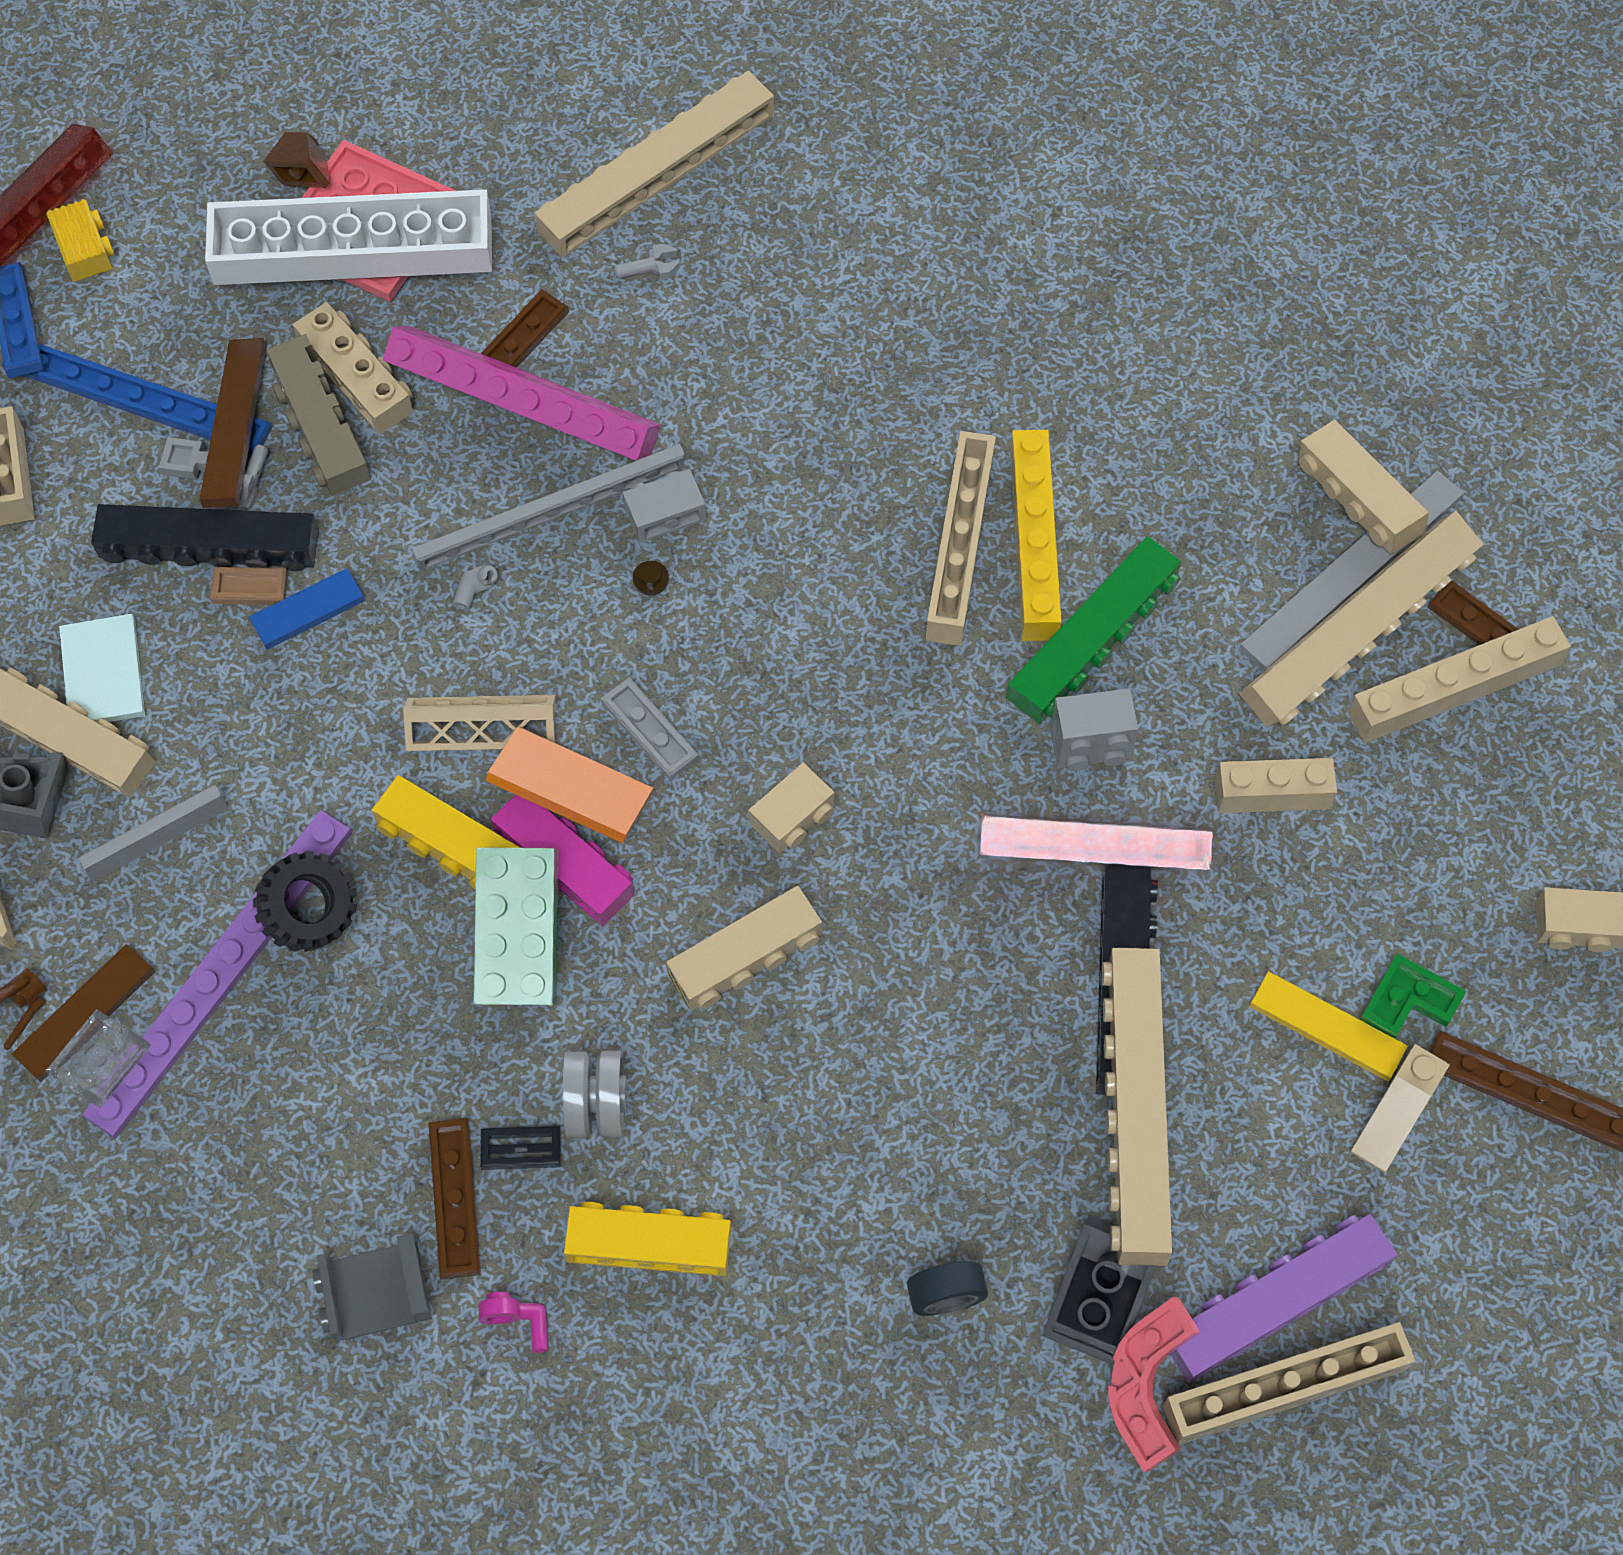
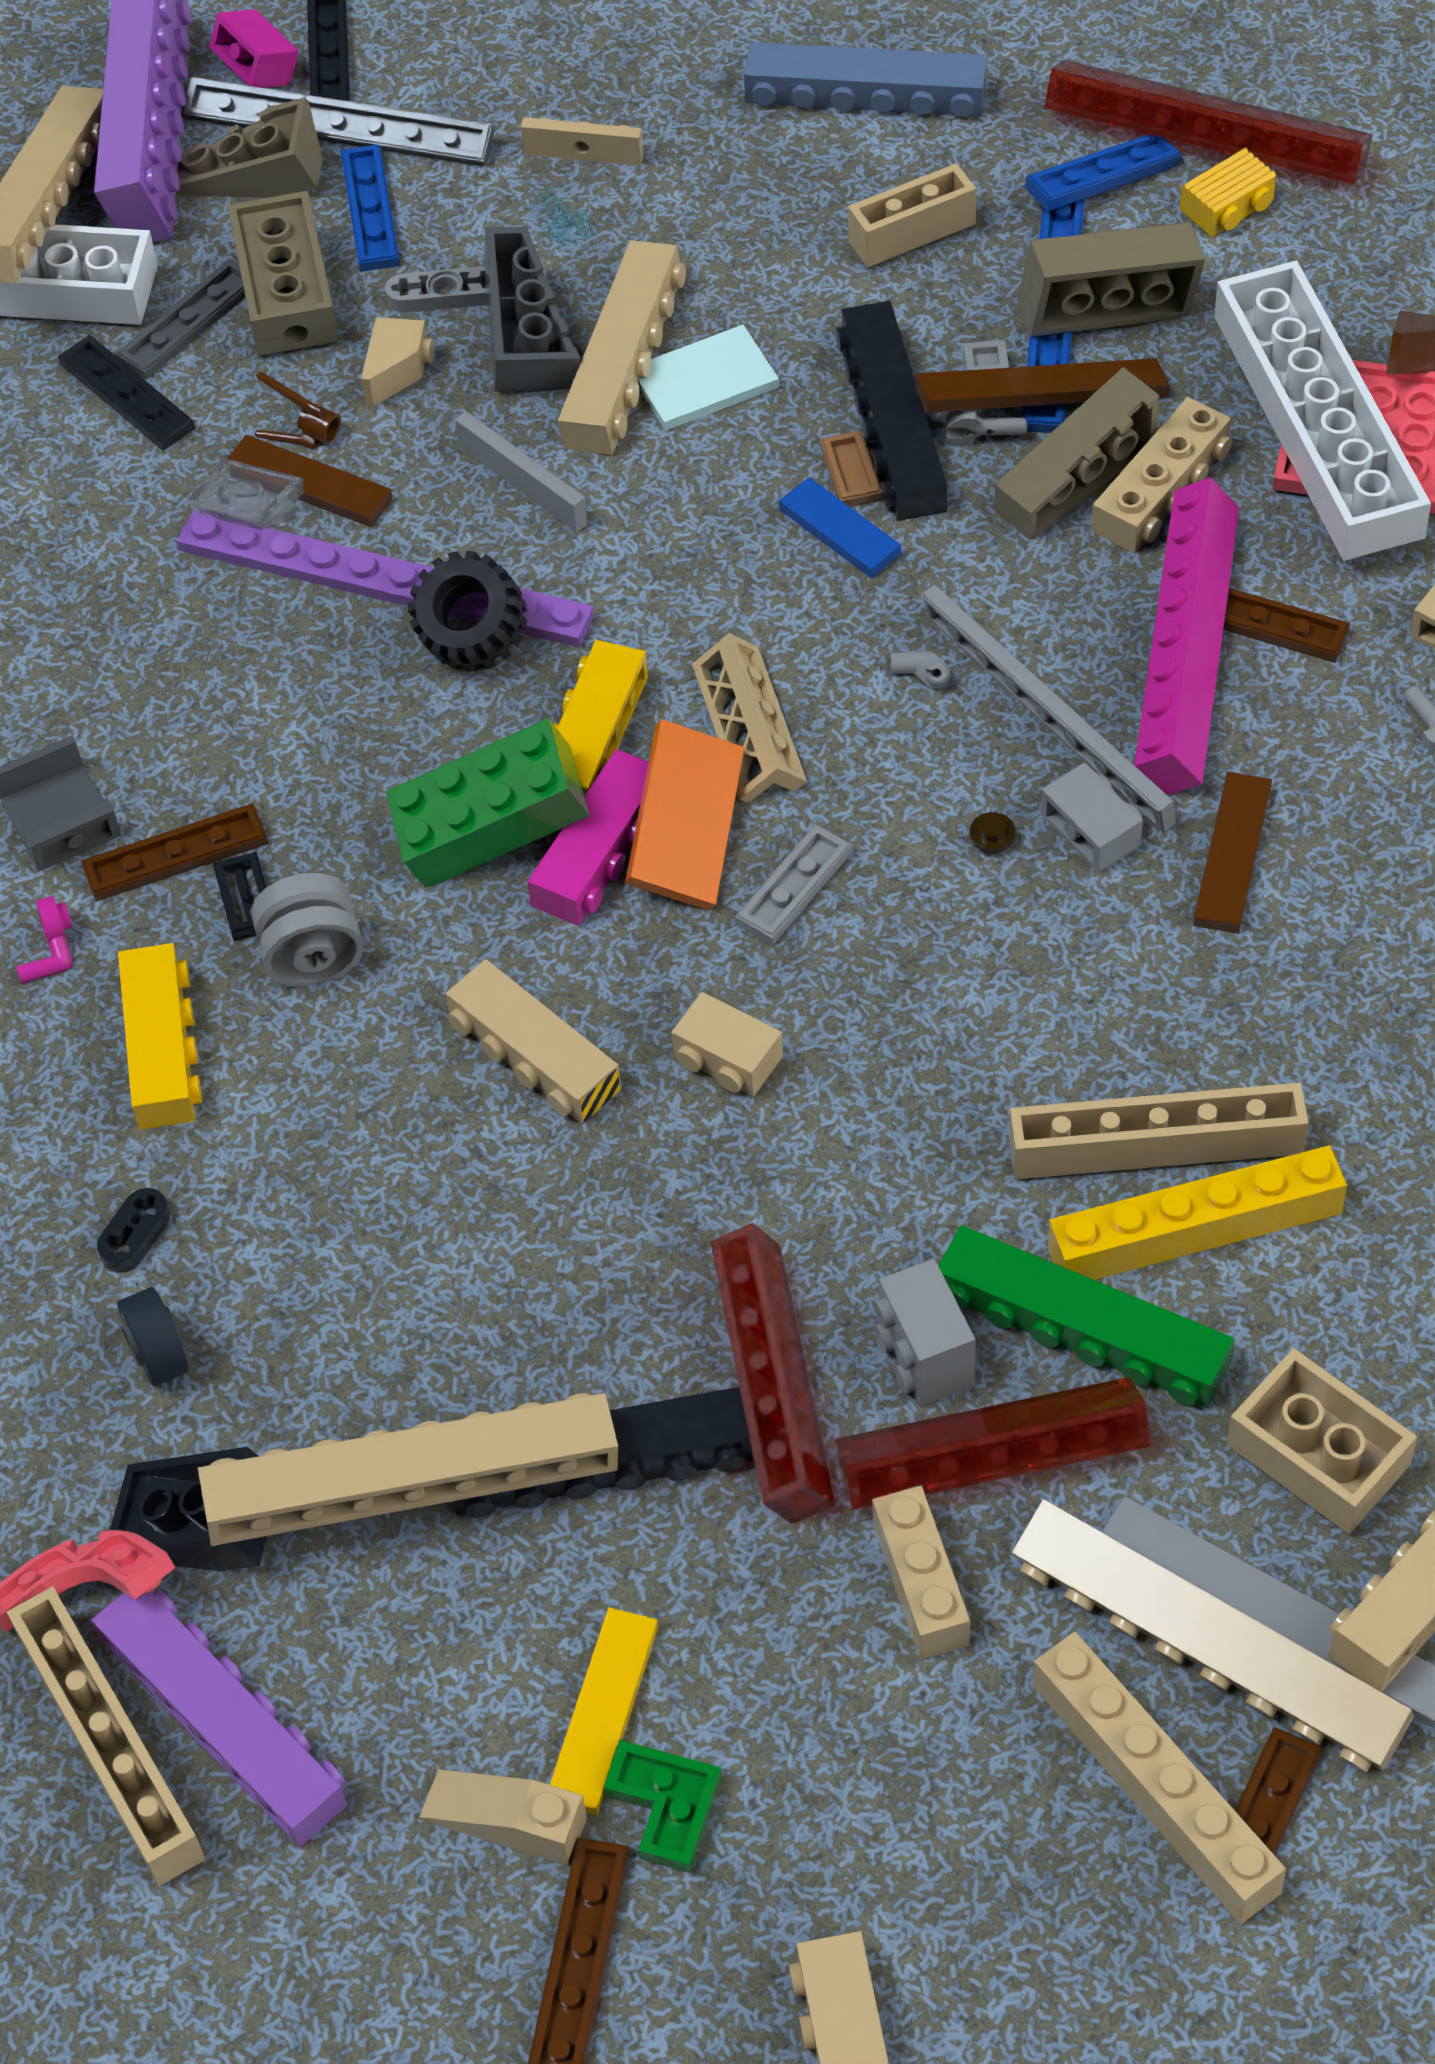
camera: 80 degrees right, 10 degrees down
(151, 340) = (1110, 279): none -> dark tan brick
(721, 426) = (1232, 852): none -> reddish brown tile
(834, 1287) = (138, 1233): none -> black beam
(1186, 713) = (994, 1441): none -> clear red brick
(1235, 508) = (1321, 1440): none -> tan brick

